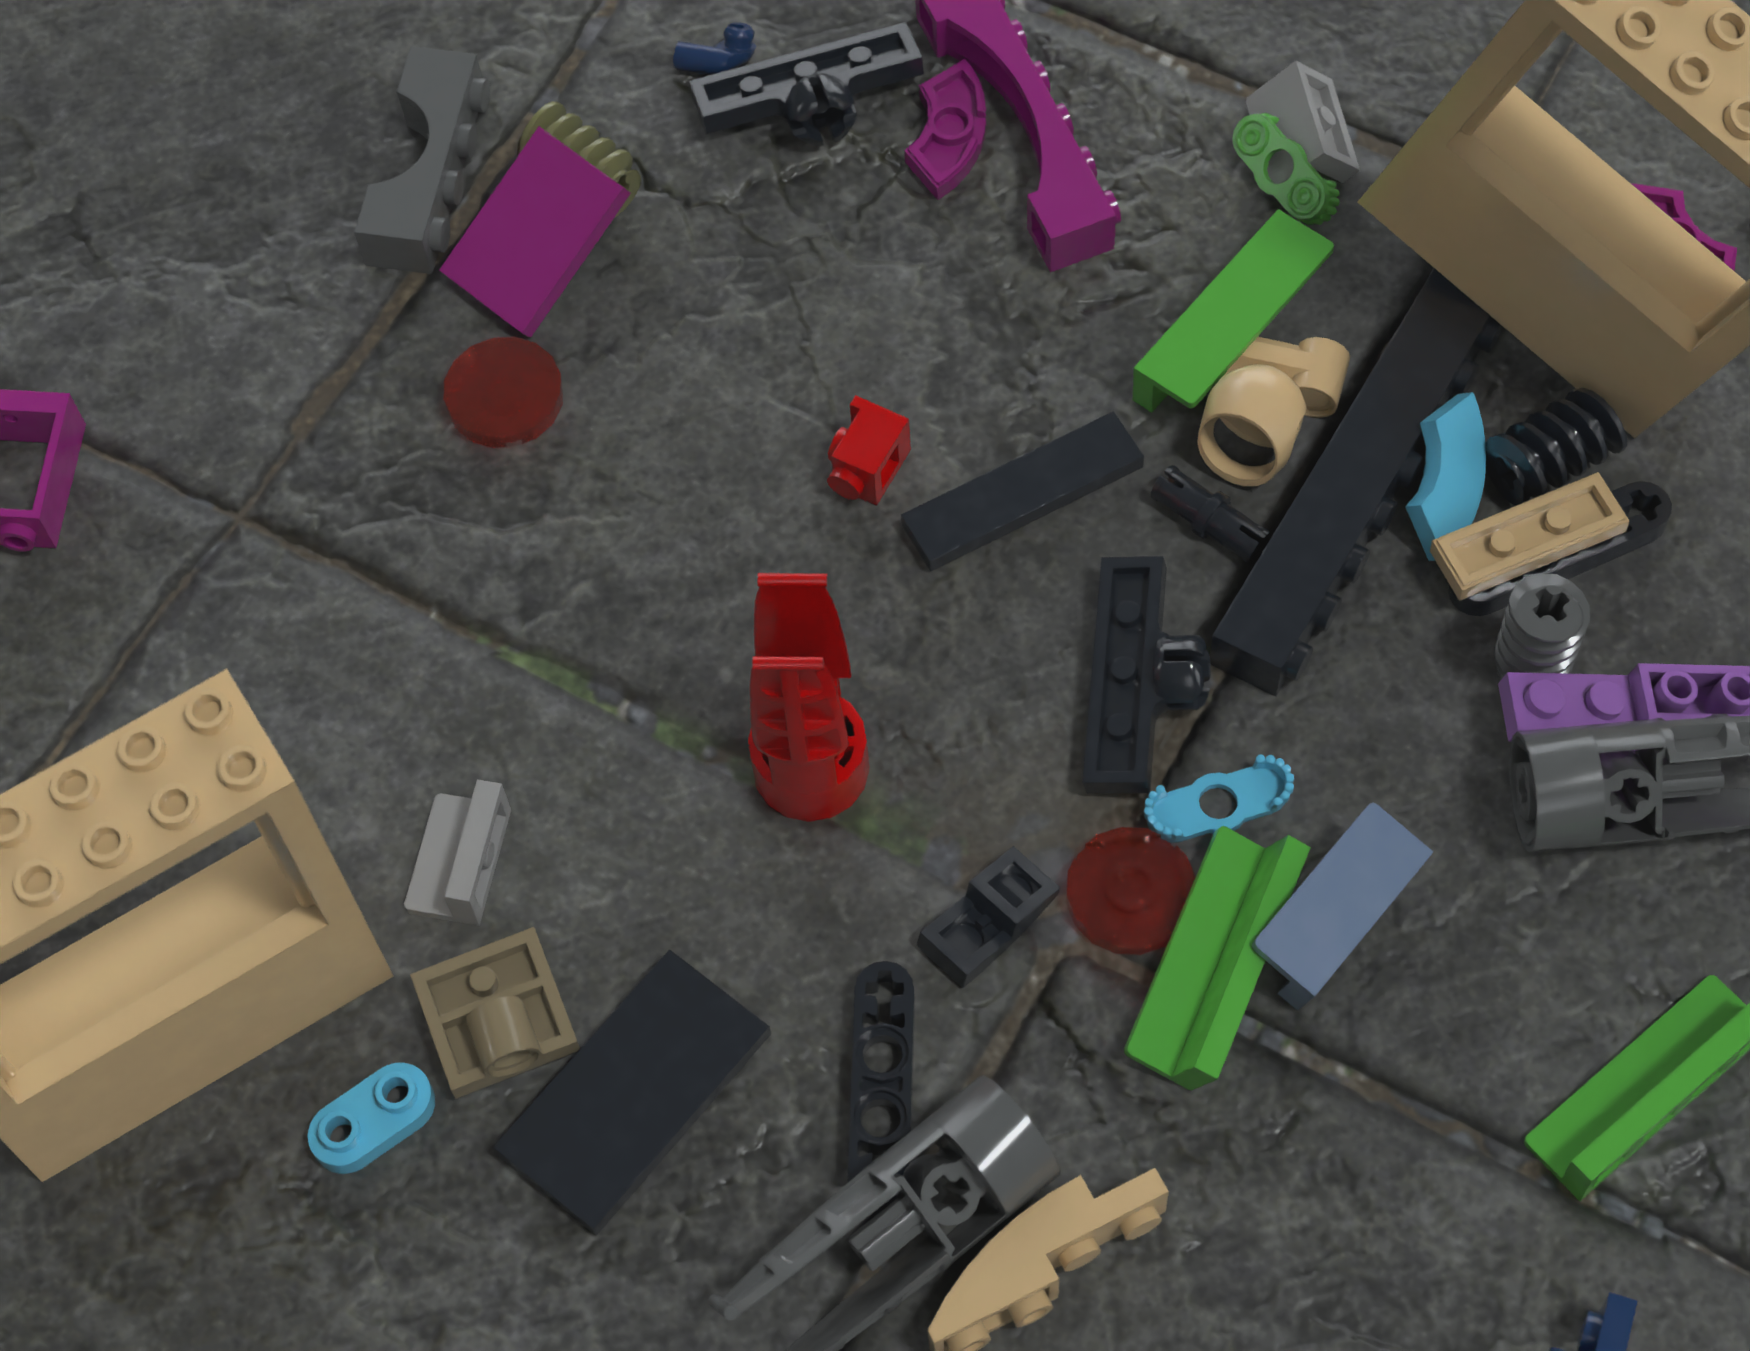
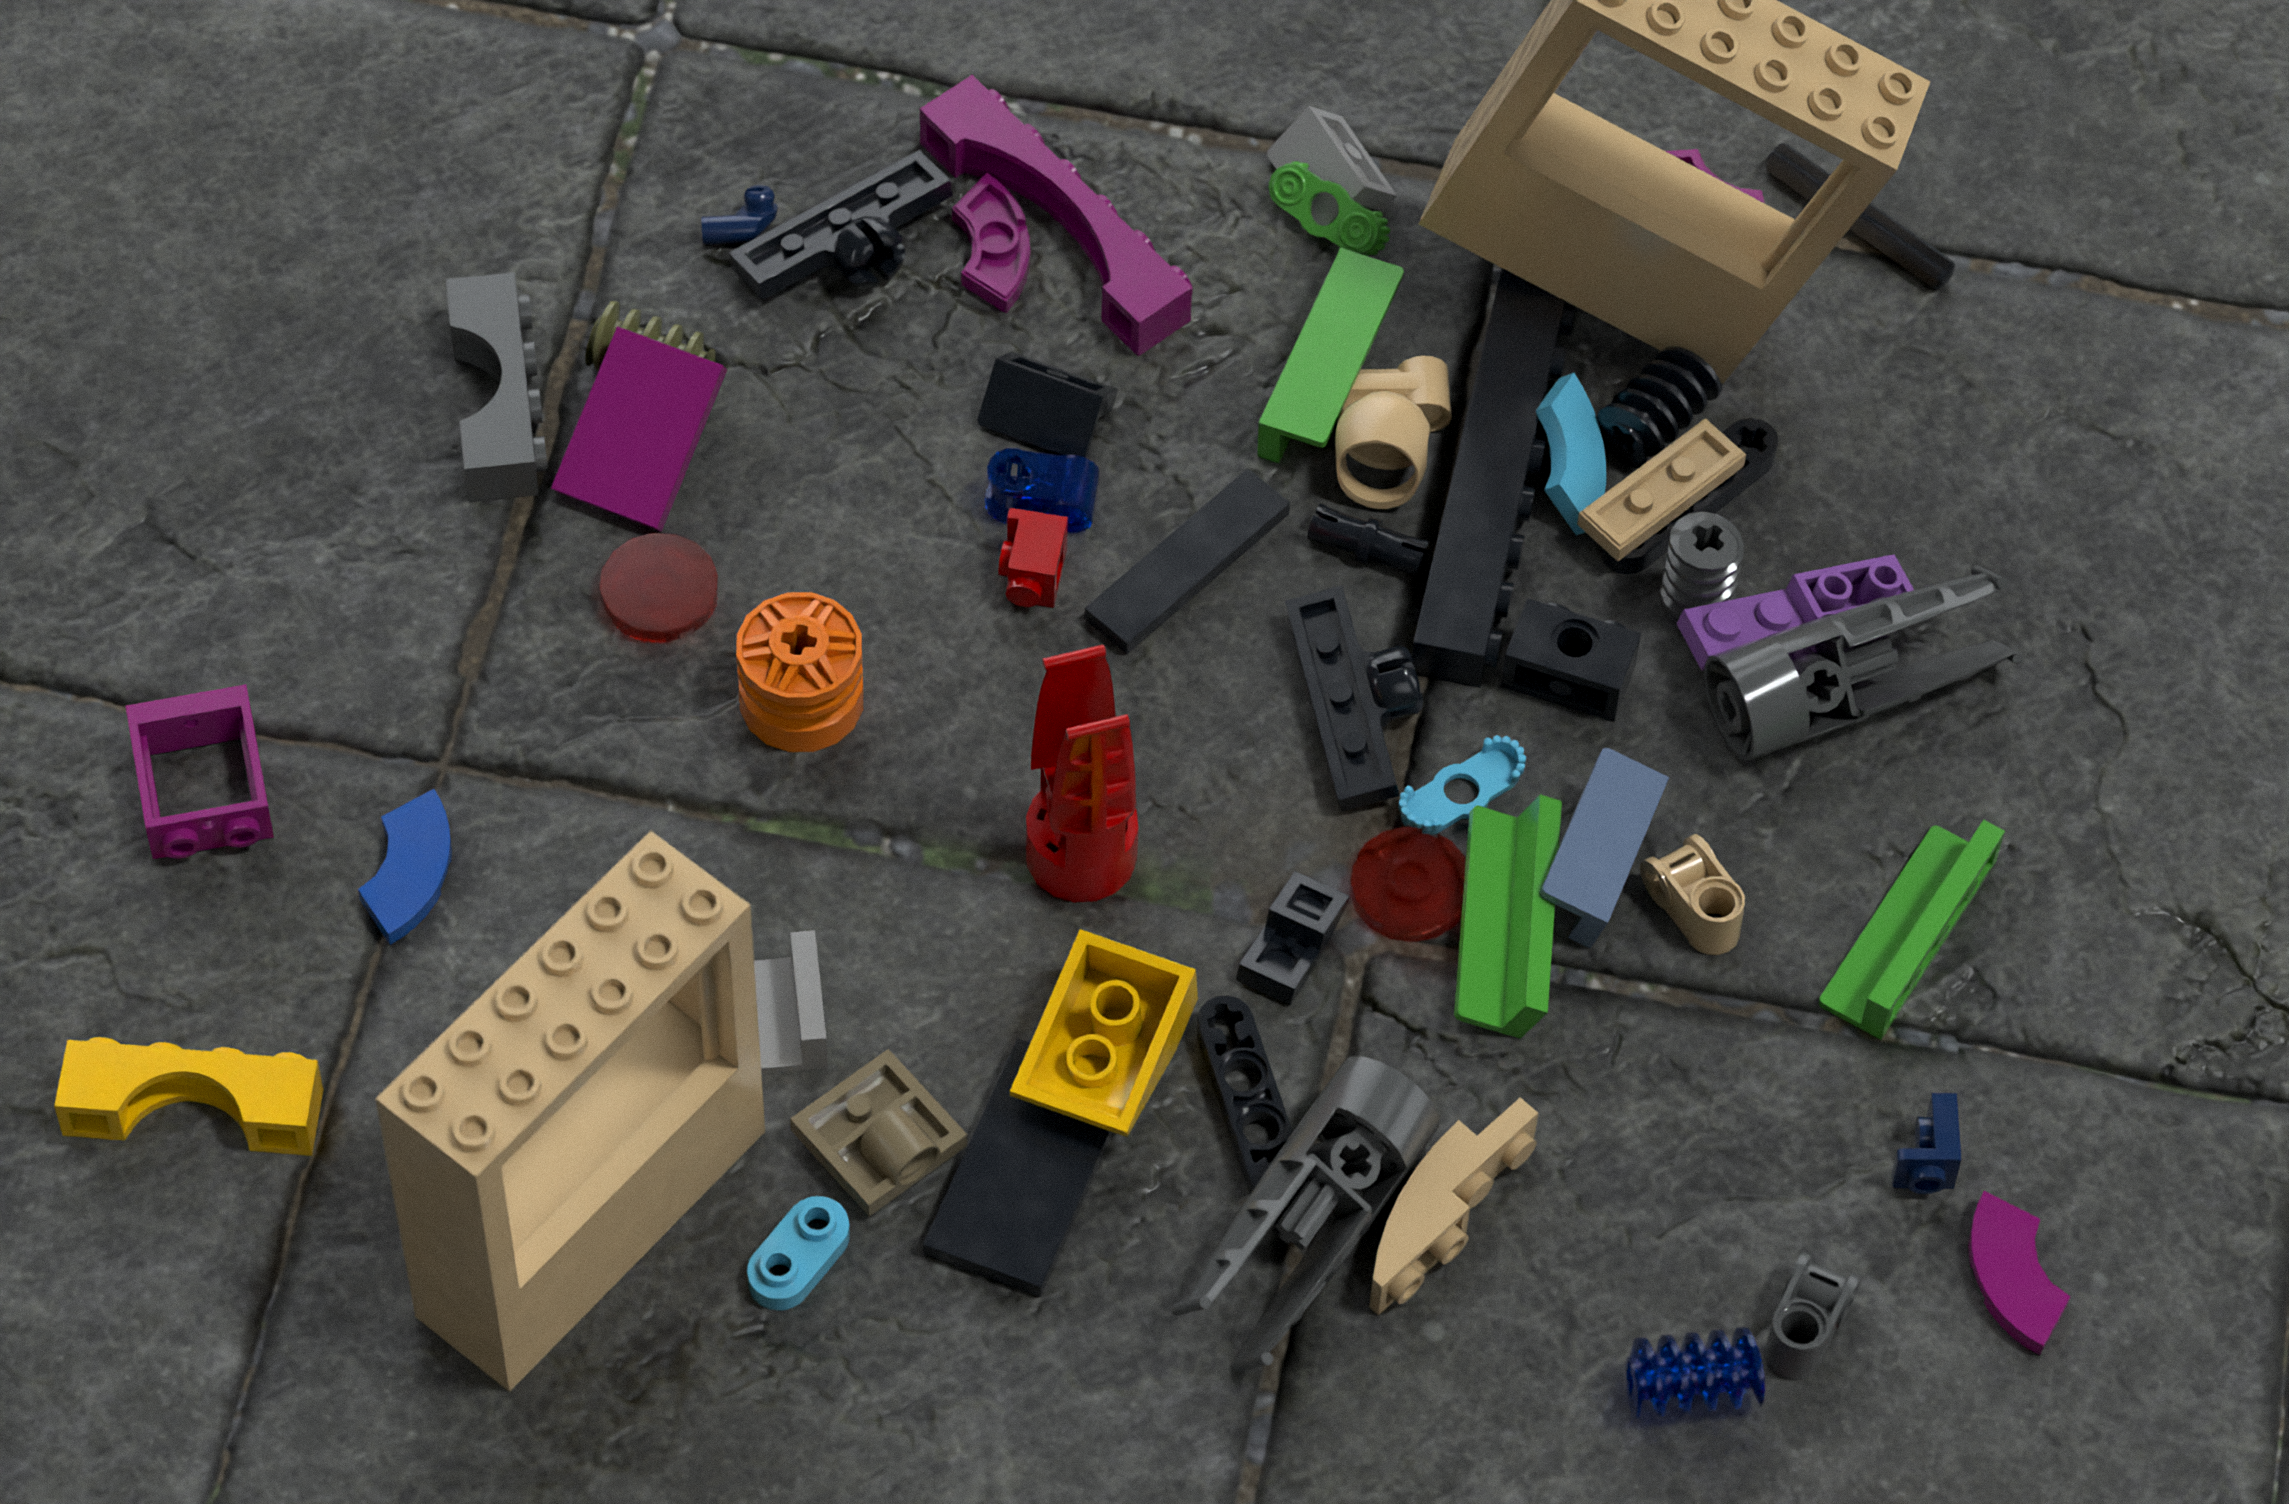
camera: 25 degrees left, 5 degrees down
(166, 613) = (413, 869): none -> blue tile
(592, 511) = (800, 672): none -> orange wheel
(749, 977) = (1106, 1033): none -> yellow slope
(905, 381) = (1043, 485): none -> clear blue piece
(937, 298) = (1044, 404): none -> black panel
(1388, 723) = (1588, 683): none -> black brick
(1426, 974) = (1692, 885): none -> tan piece

